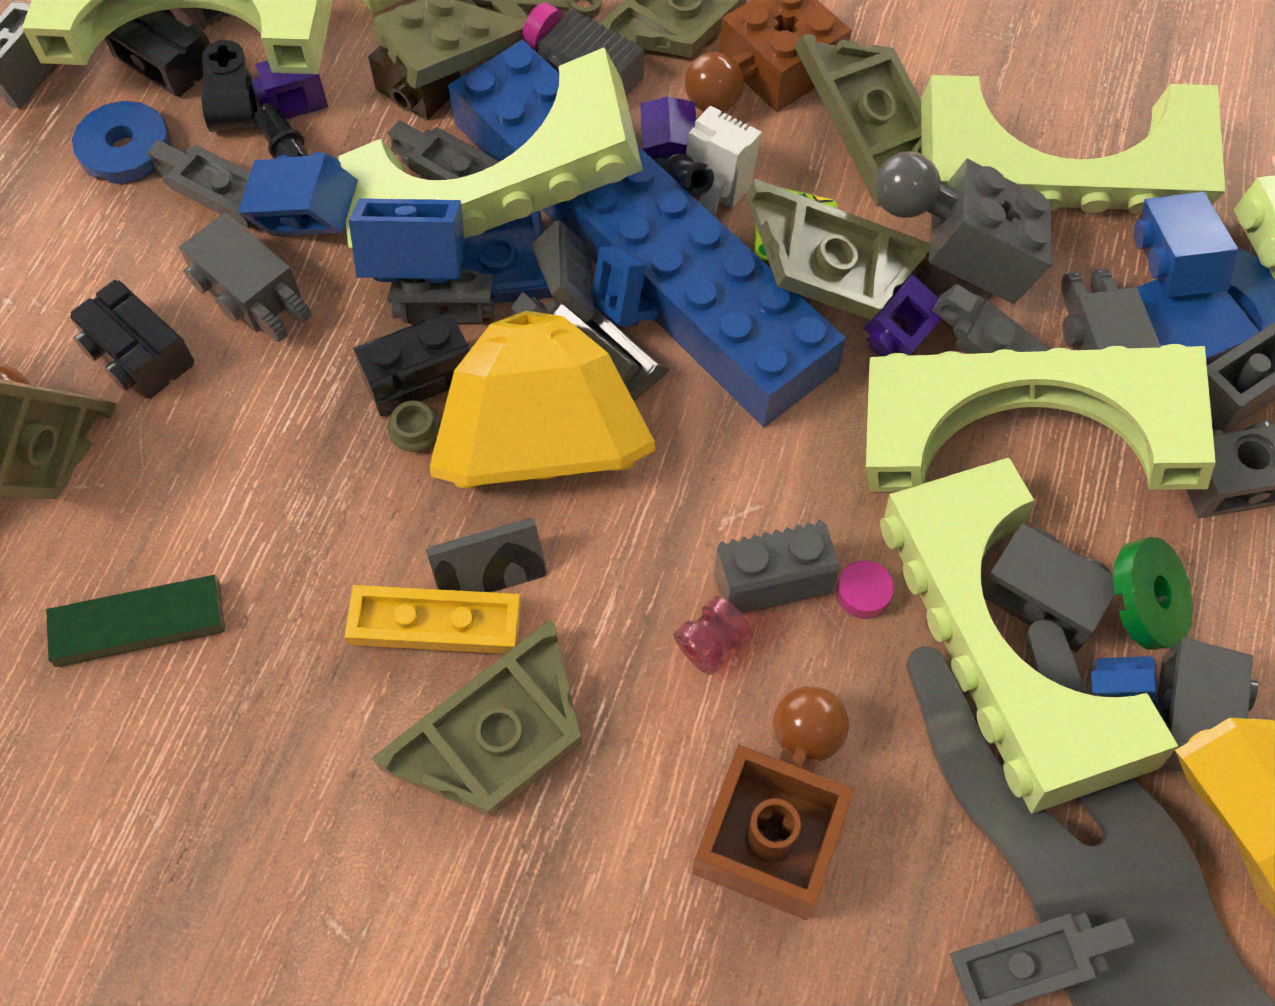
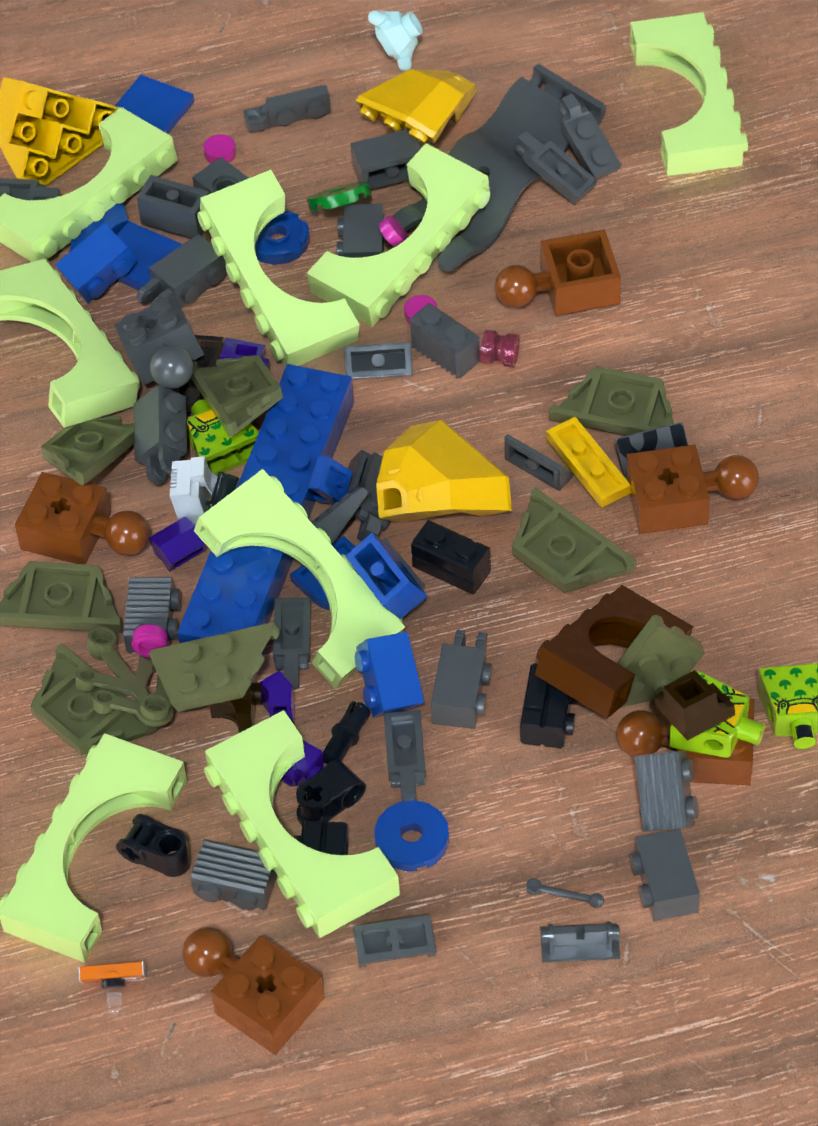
camera: 120 degrees left, 10 degrees down
(134, 620) = (698, 589): dark green tile -> none
(157, 478) = (585, 673): none -> reddish brown arch
(277, 705) = (673, 490): none -> dark orange brick
(329, 503) = (565, 547): none -> olive wing
(369, 101) = (278, 695): none -> dark purple piece
(379, 710) = (650, 440): none -> slope
(413, 426) = (490, 537): olive plate -> none
(812, 484) = (378, 360): none -> dark grey slope
(826, 170) = (160, 431): none -> dark grey hinge
(982, 325) = (227, 313): dark grey hinge -> none
(1019, 608) = (393, 231): none -> dark pink tile
(1114, 518) = (289, 247): none -> blue tile
(1125, 677) = (398, 190): blue bracket -> none

